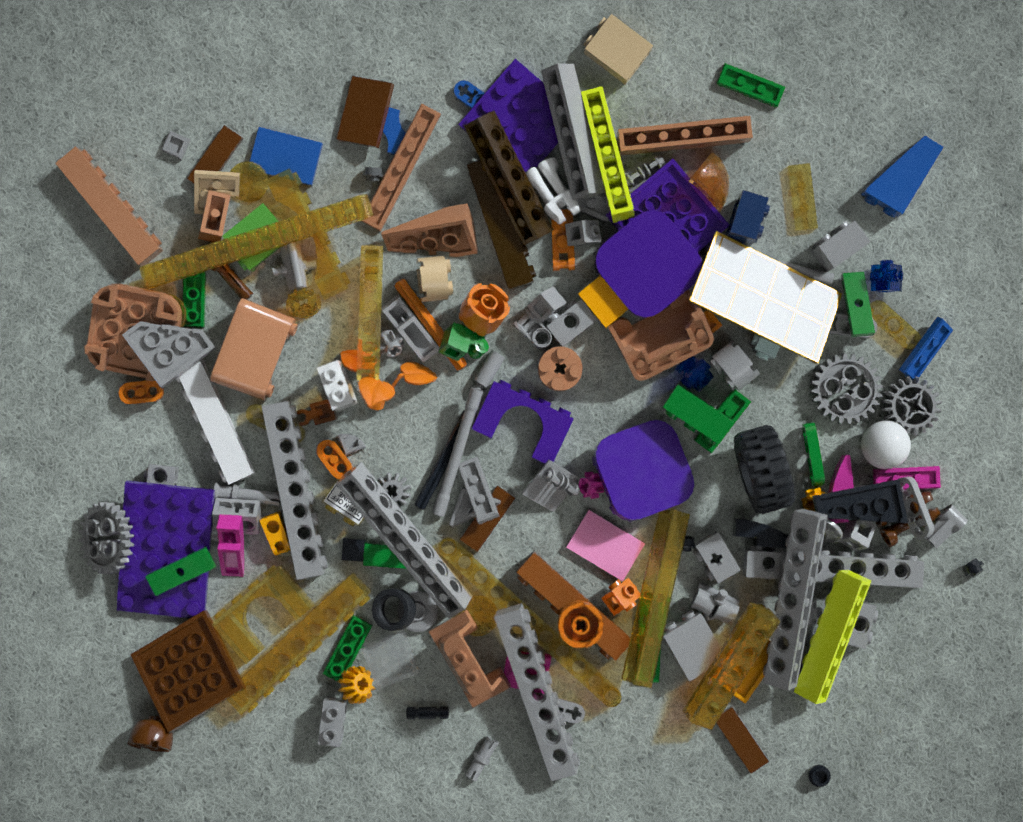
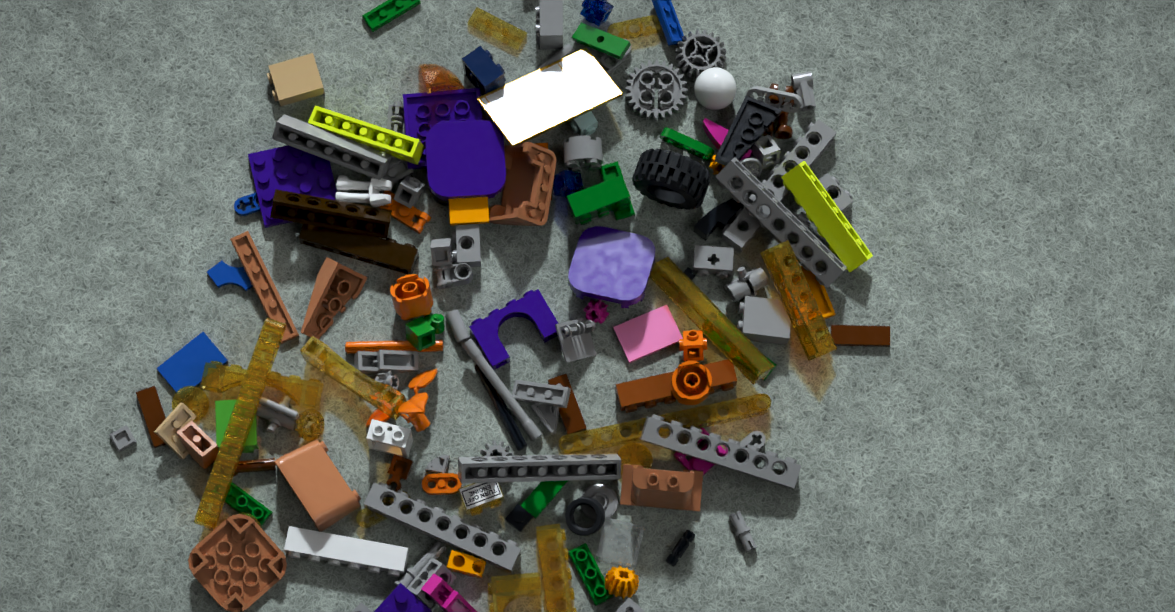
camera: 55 degrees left, 15 degrees down
(109, 207) = (131, 517): nougat brick -> none
(142, 392) = (286, 592): orange plate -> none
(168, 349) = (270, 542): light grey plate -> none
(365, 112) = (205, 284): reddish brown tile -> none
(373, 173) = (253, 310): dark grey plate -> none
(434, 278) = (363, 317): tan brick -> none
(560, 356) = (492, 265): nougat brick -> none
(684, 135) = (393, 74): nougat brick -> none
(819, 775) = (925, 298): black plate -> none
(926, 477) = (759, 78): dark pink tile -> none
(973, 568) = (848, 91): black plate -> none

